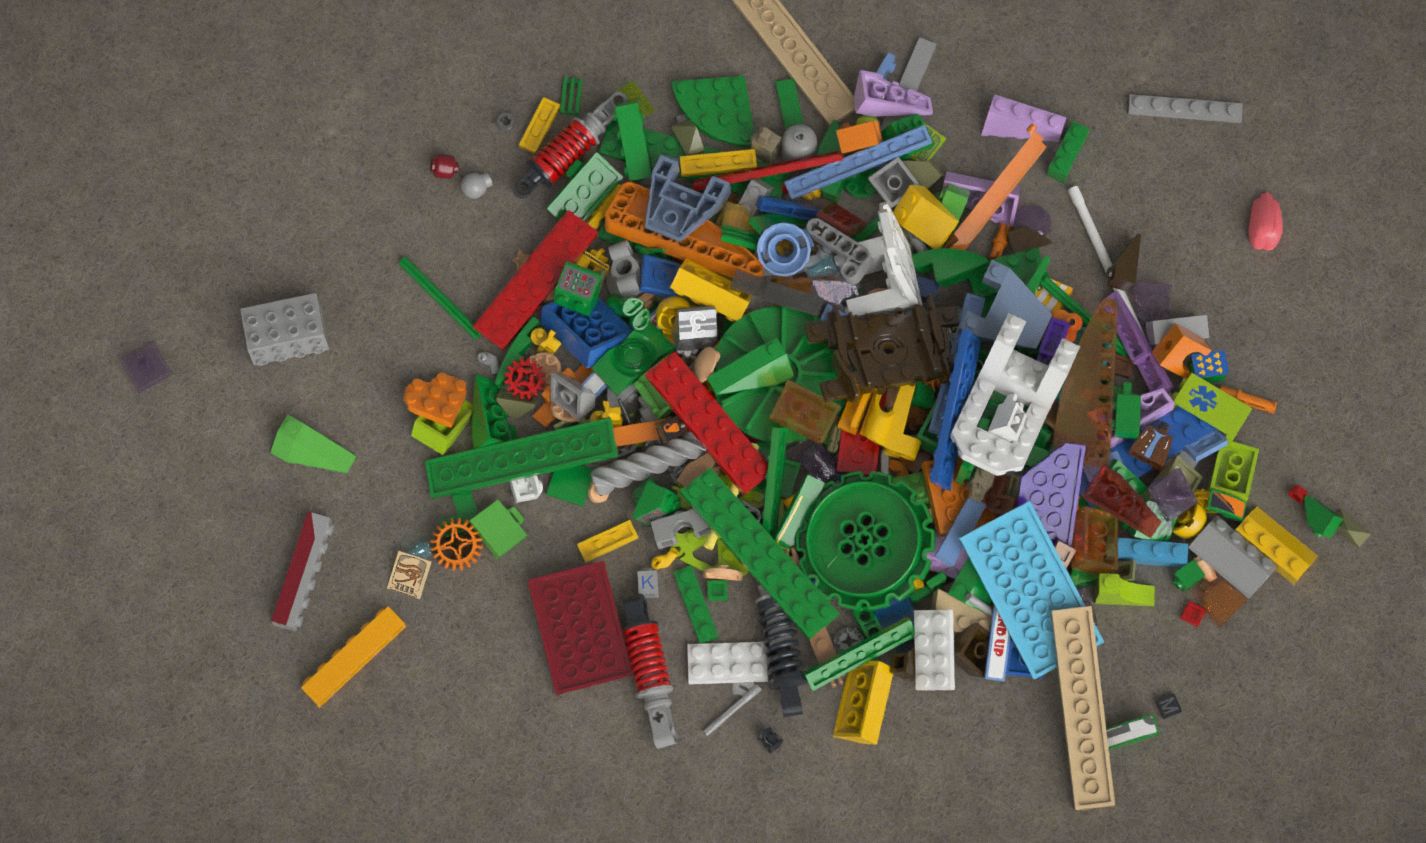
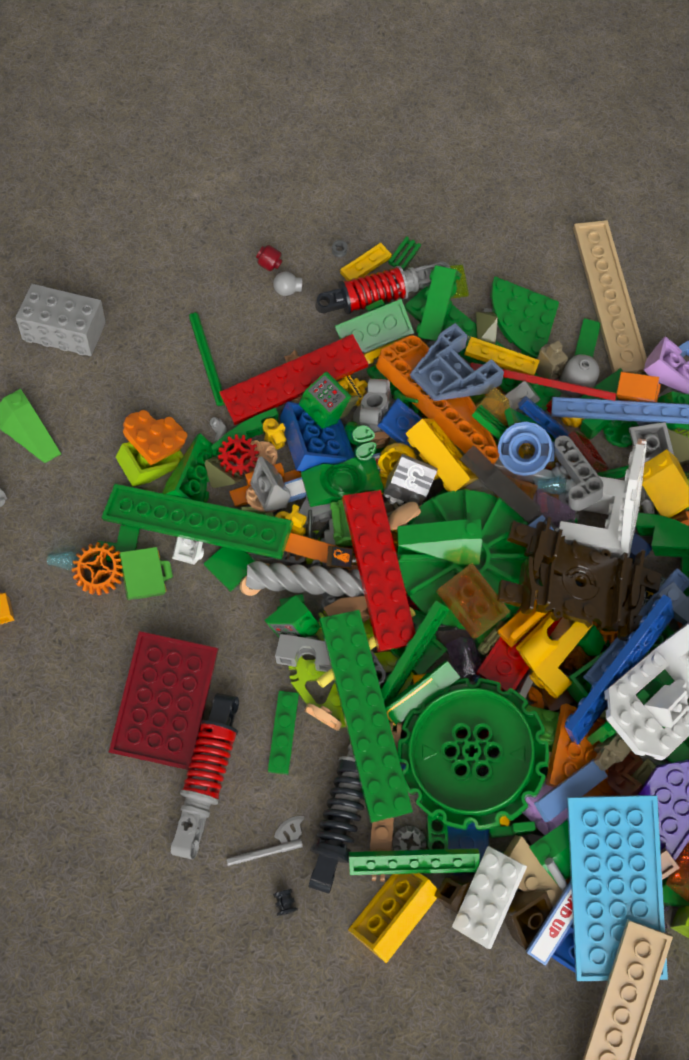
camera: 20 degrees right, 5 degrees down
(409, 575) = (43, 575): sticker -> none
(607, 541) = (234, 633): yellow plate -> none
(648, 583) = (250, 690): light grey brick -> none
(665, 560) = (275, 676): yellow arm -> none
(717, 590) = (310, 729): green plate -> none
(727, 663) = (283, 803): white plate -> none

